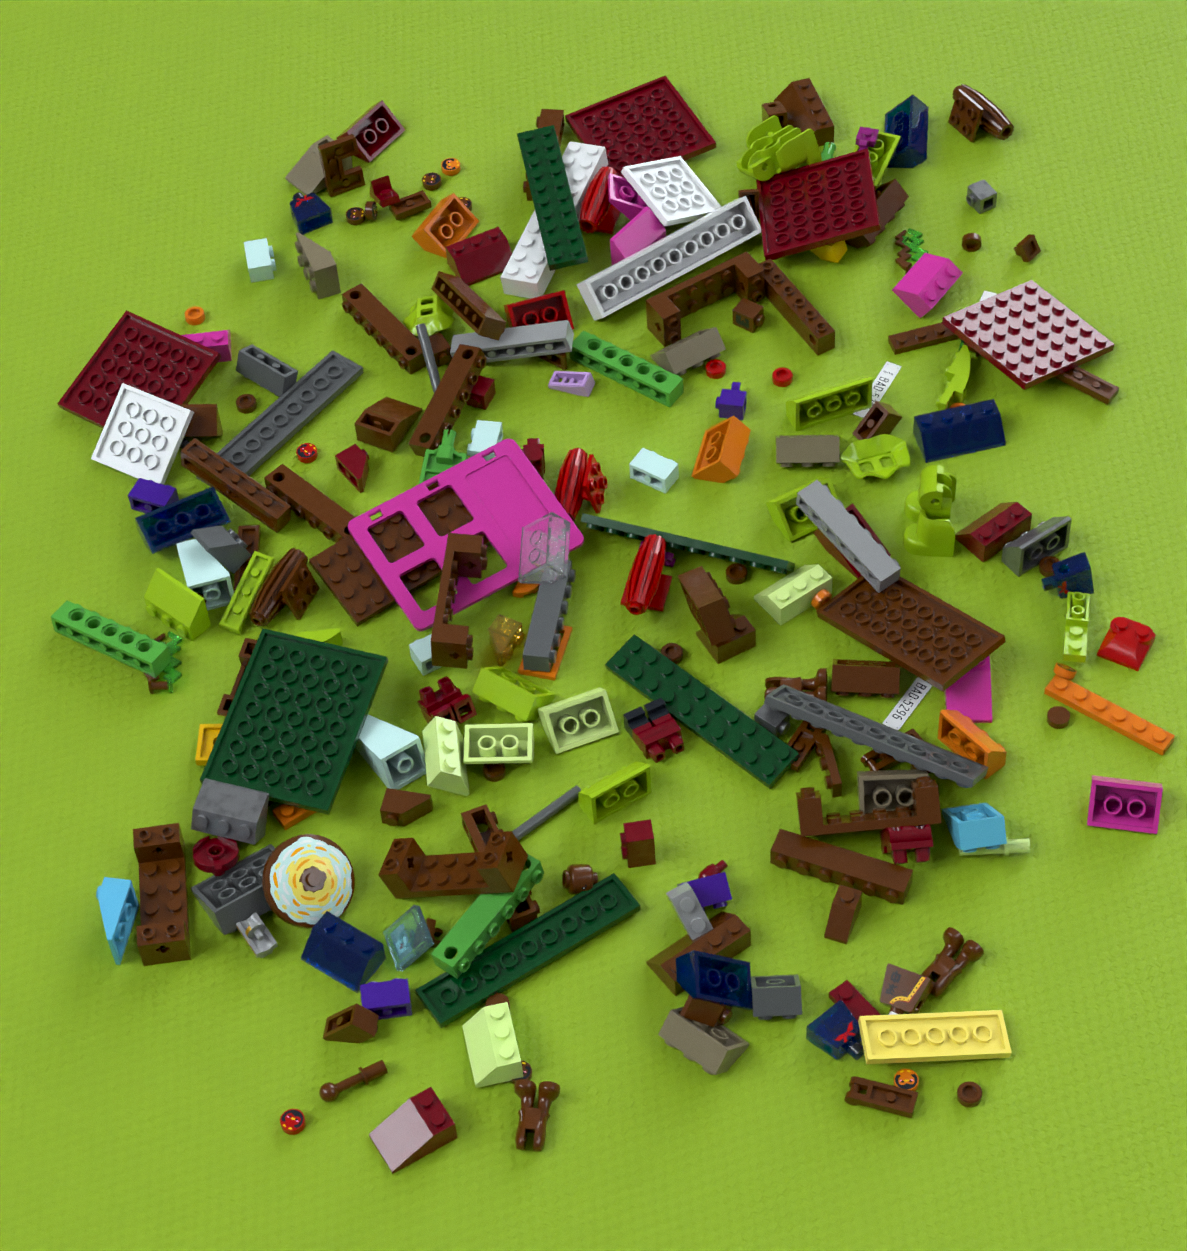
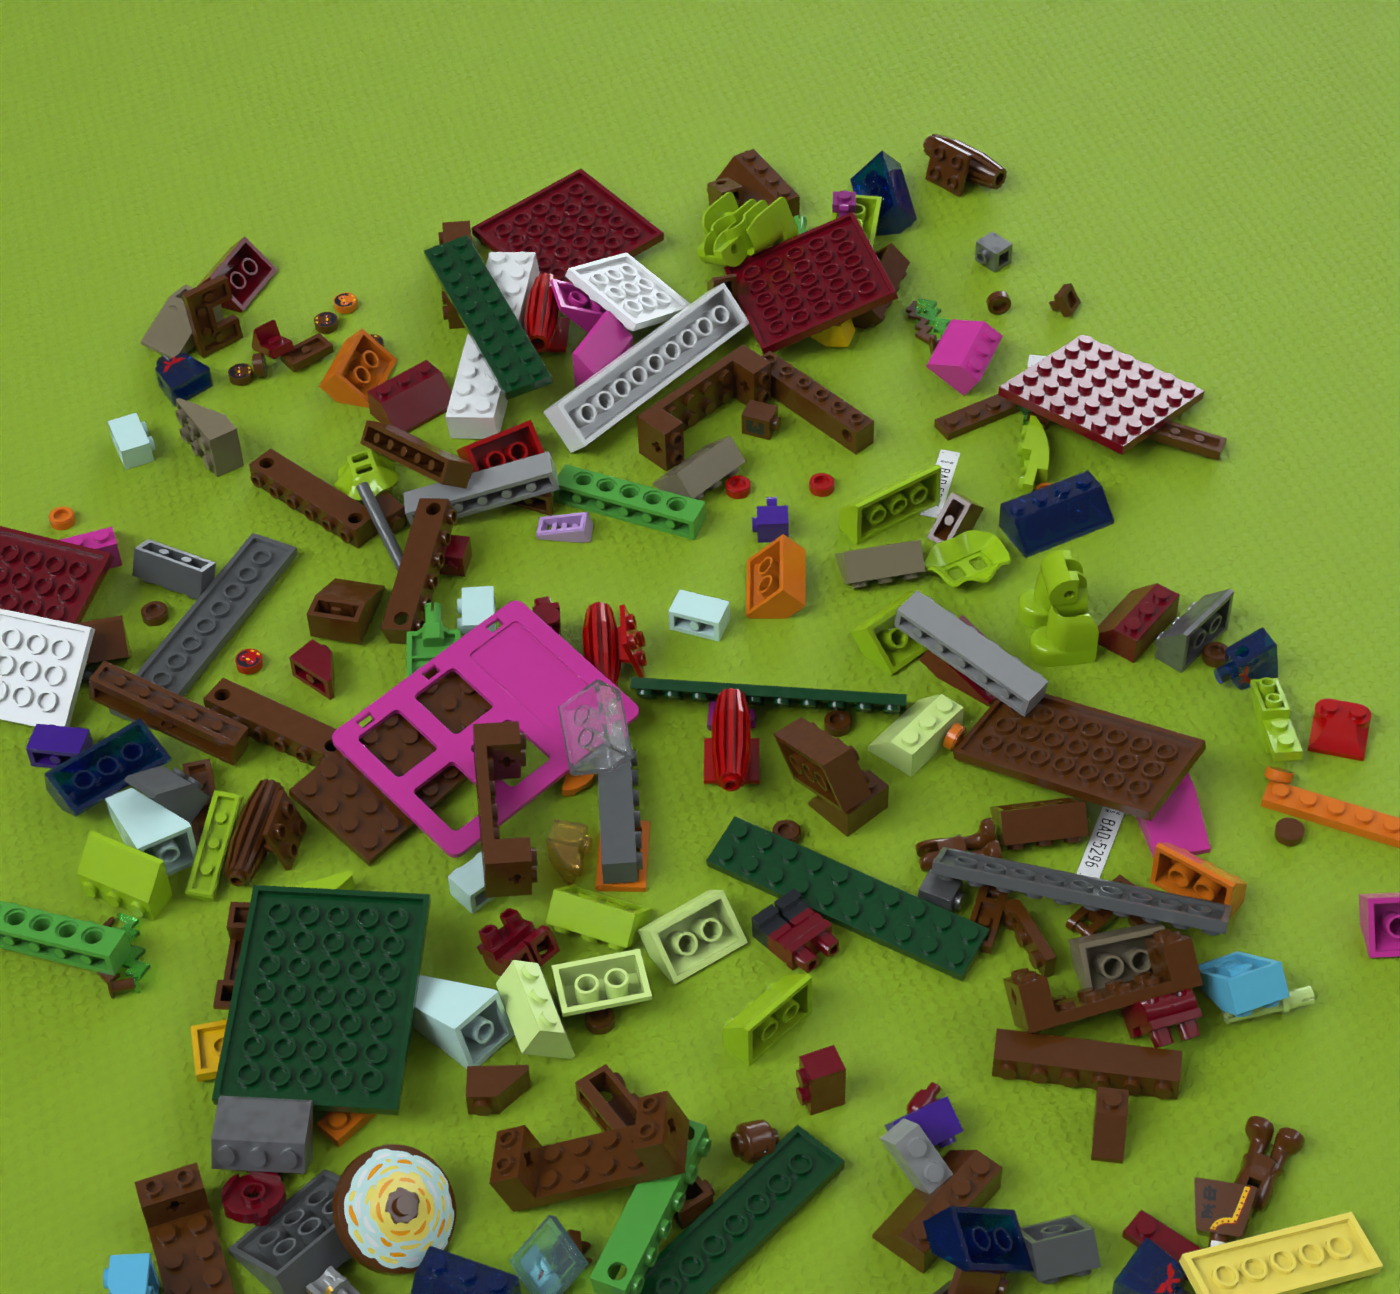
camera: 15 degrees left, 5 degrees down
(546, 813) = (688, 1058): dark grey piece -> none

